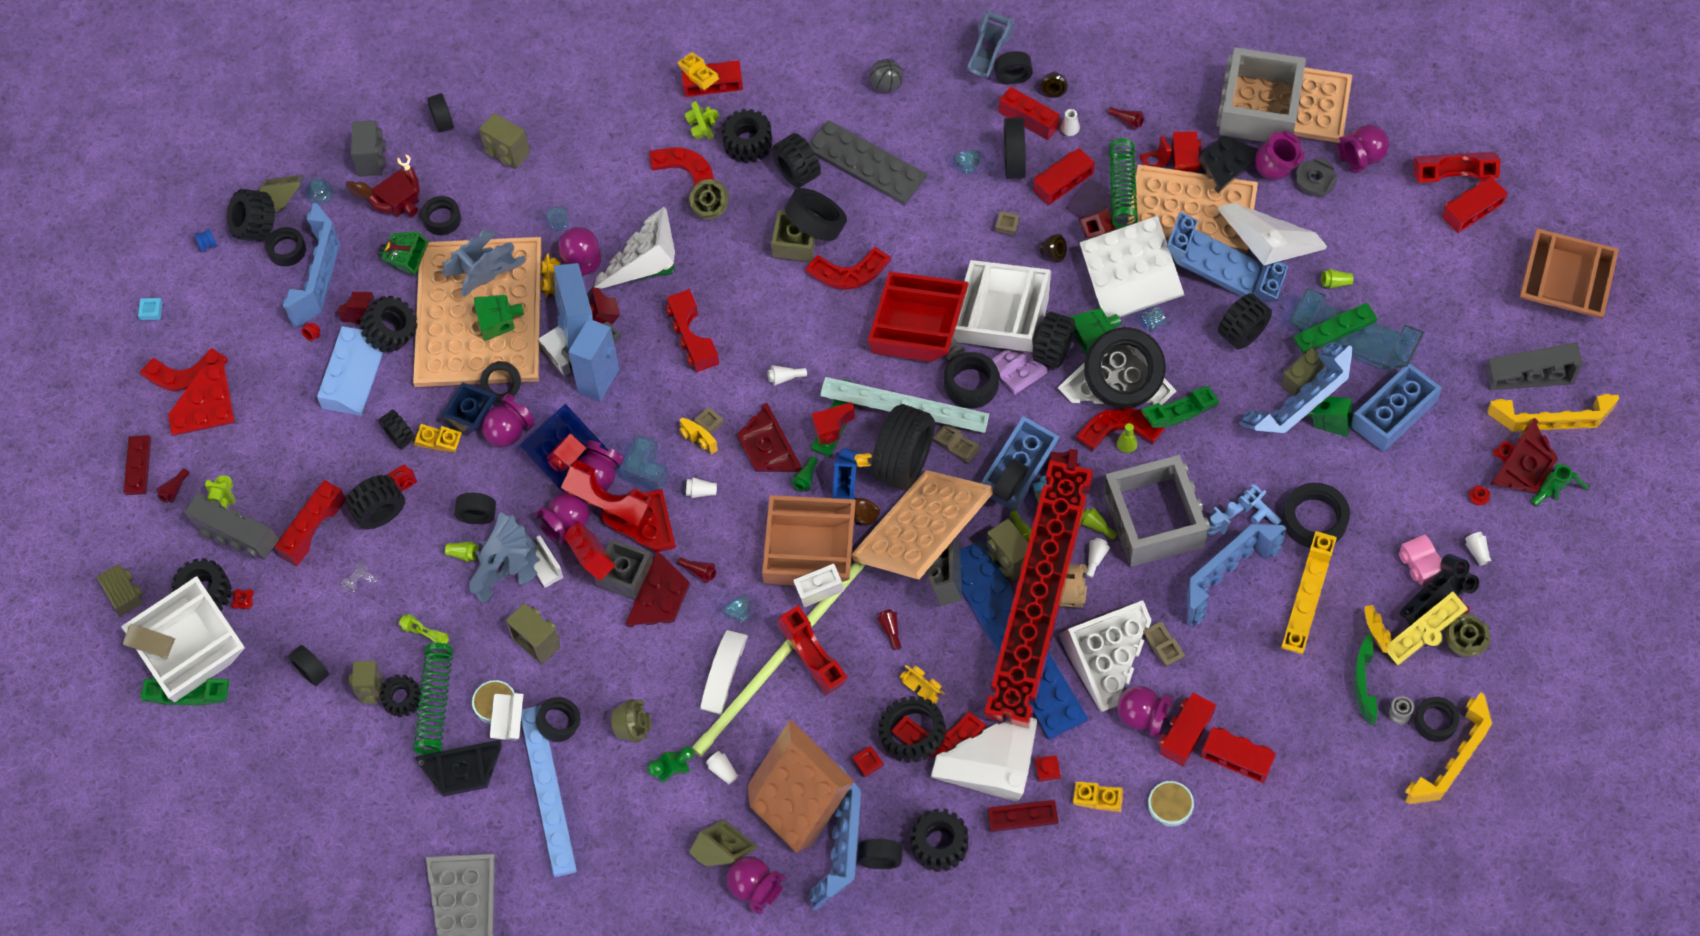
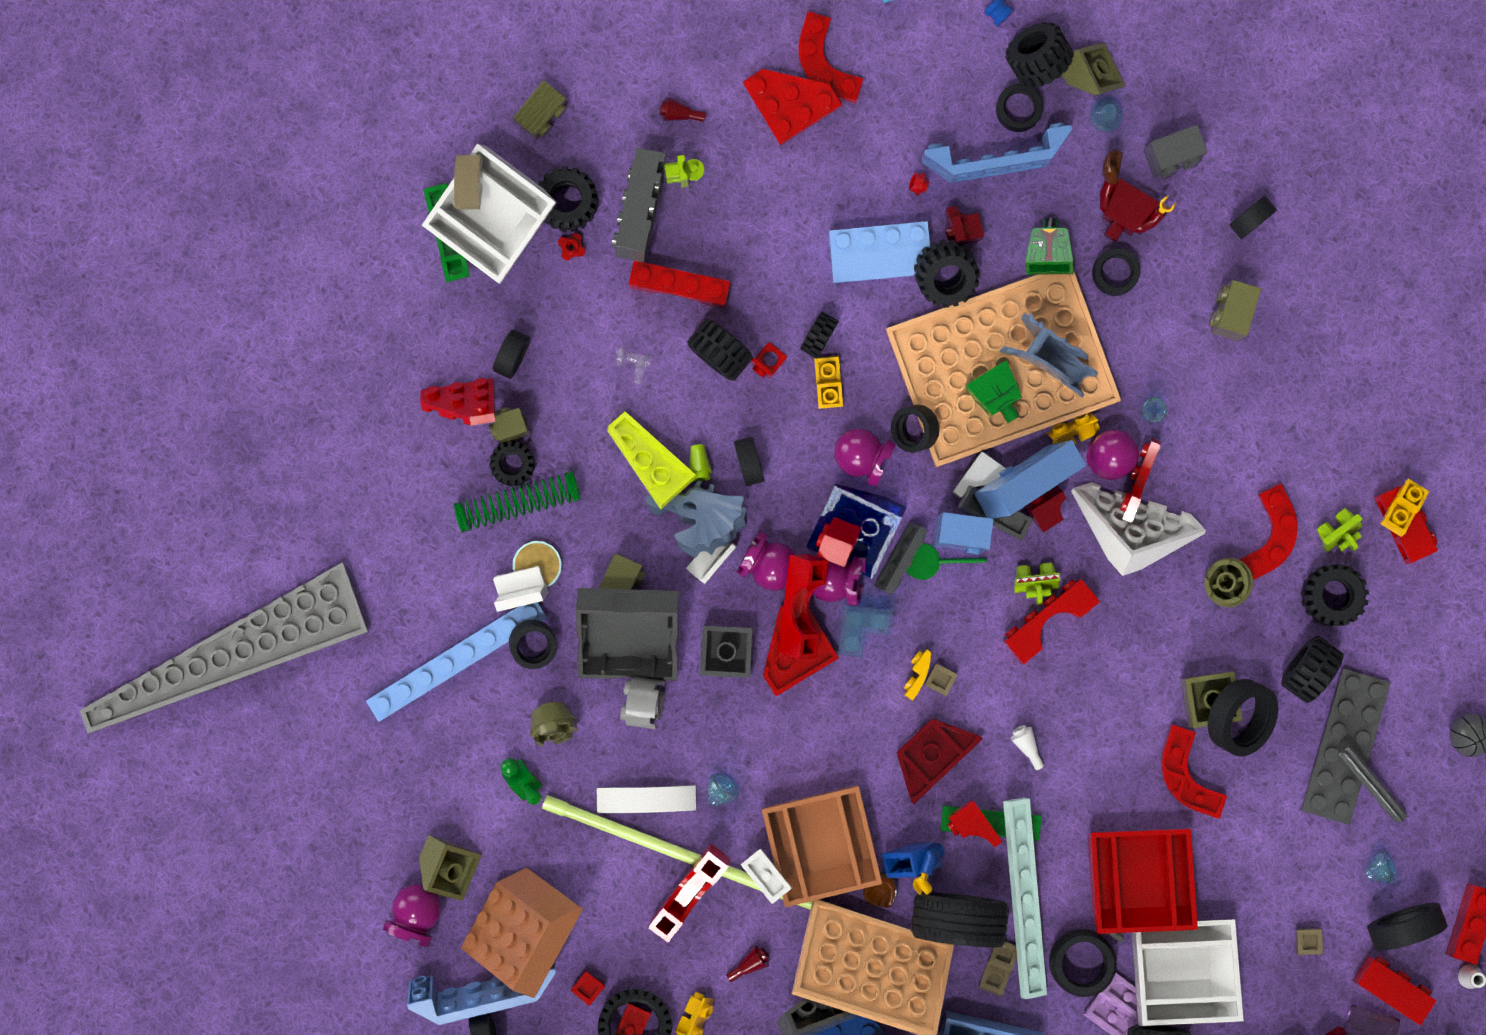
camera: 70 degrees right, 25 degrees up
(137, 465) = (695, 60): dark red plate -> none
(328, 717) = (469, 401): none -> red plate
(407, 622) = (591, 474): lime piece -> none
(442, 582) = (652, 462): none -> neon yellow wing
(461, 768) = (451, 560): black wing -> none
(467, 408) = (867, 408): dark blue slope -> none
(576, 630) = (627, 633): none -> dark grey tile
(589, 550) = (727, 611): red brick -> none
(599, 422) = (901, 558): none -> dark grey plate
(611, 411) = (927, 562): none -> green piece
(617, 242) = (1140, 474): none -> red plate
(640, 643) = (643, 702): none -> light grey brick
(659, 595) = (715, 698): dark red wing -> none
(660, 332) = (1037, 585): none -> lime hips
(700, 488) = (854, 698): white cone -> none
(703, 570) = (755, 736): dark red cone -> none
(721, 766) = (535, 835): white cone -> none
(803, 479) = (901, 811): green cone -> none
(899, 148) = (1373, 784): none -> dark grey axle
(1054, 248) = (1289, 1007): dark brown brick -> none

